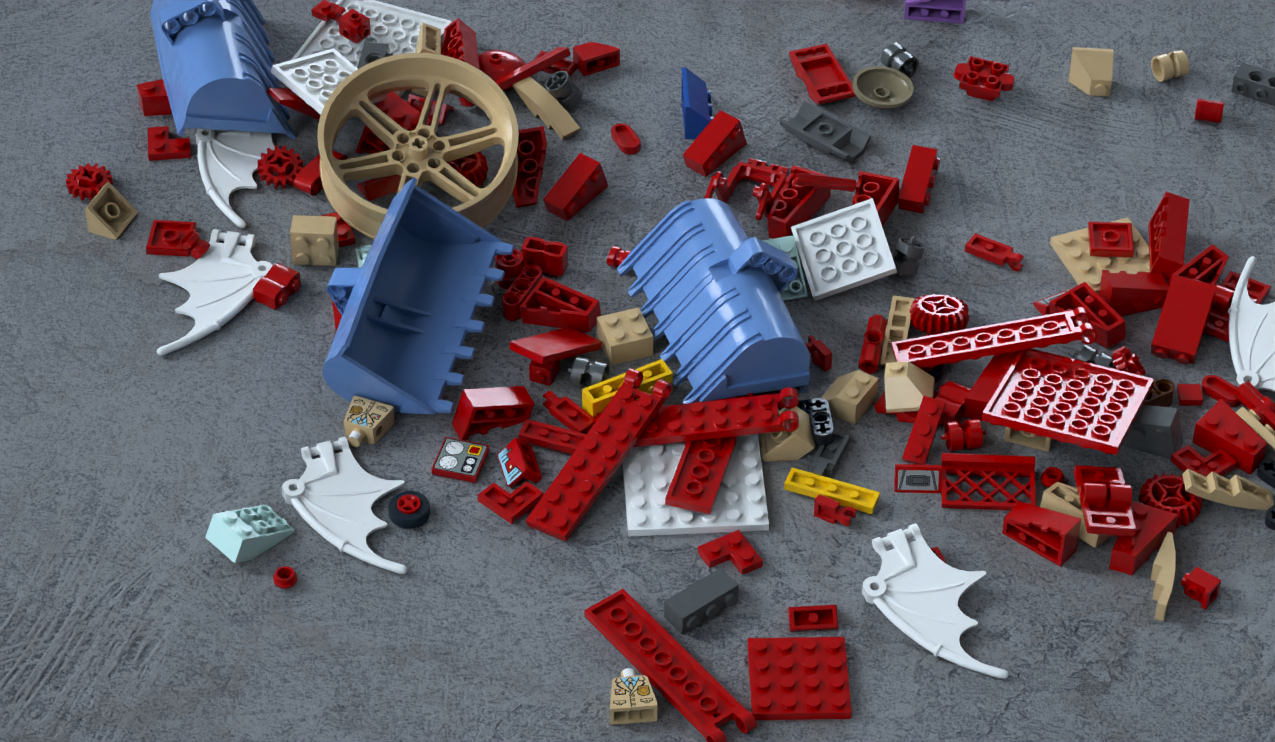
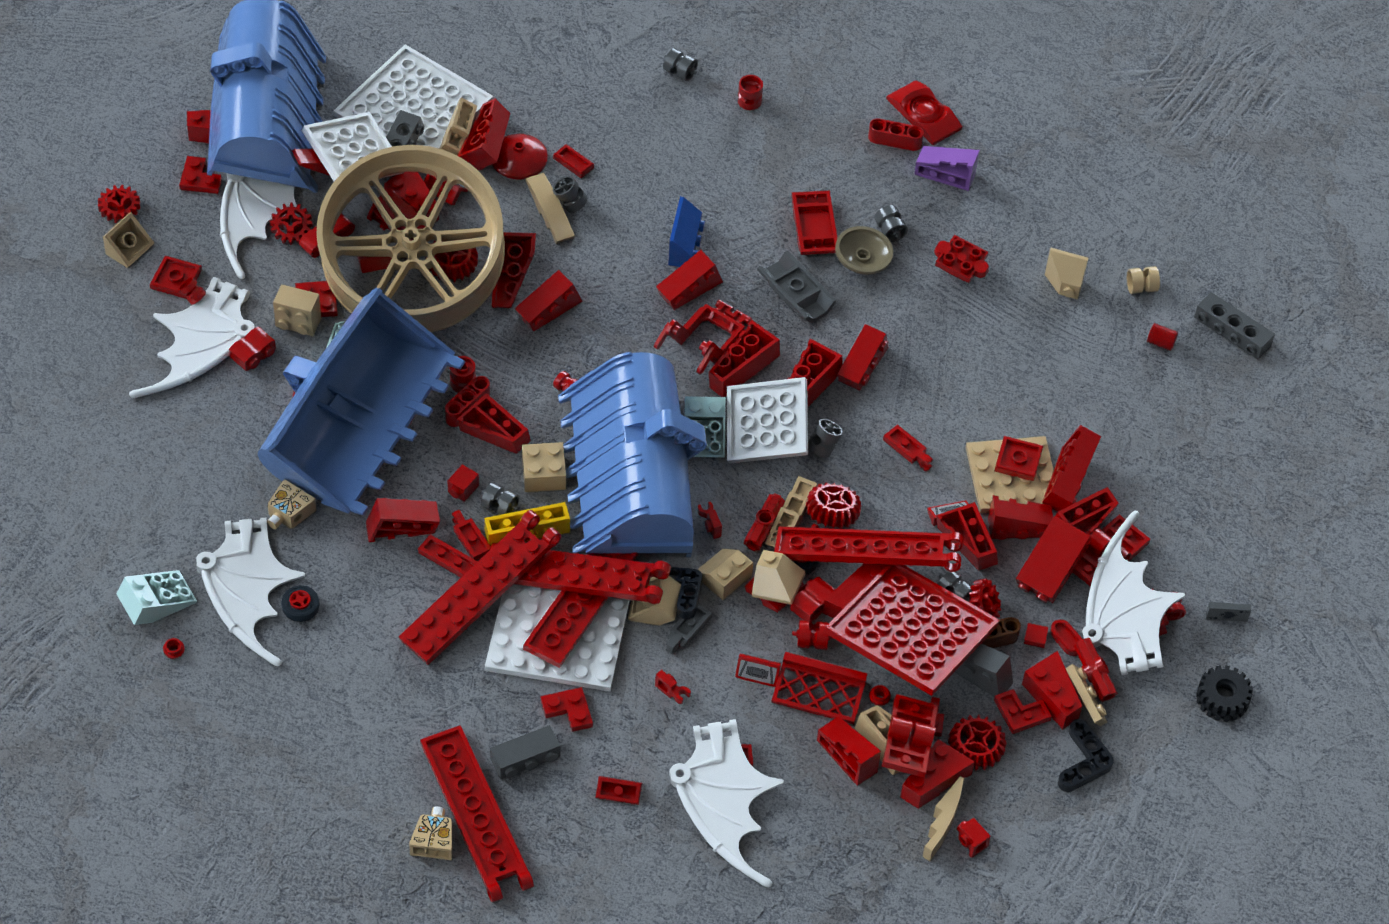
camera: 10 degrees right, 10 degrees up
(327, 10) = (383, 63): red plate -> none
(354, 26) = (399, 87): red brick -> none
(460, 459) = (361, 561): tile -> none
(511, 505) = (388, 618): red plate -> none
(518, 461) = (411, 577): red panel -> none
(527, 70) = (537, 167): red tile -> none
(549, 256) = (497, 368): red brick -> none
(555, 345) = (476, 466): red tile -> none
(595, 57) = (612, 162): red slope -> none
(625, 139) = (613, 255): red tile -> none
(798, 678) = (586, 847): red plate -> none
(825, 182) = (772, 346): red axle -> none
(842, 492) = (677, 665): yellow plate -> none
(924, 431) = (777, 624): red plate -> none
(1232, 492) = (1032, 746): tan slope -> none

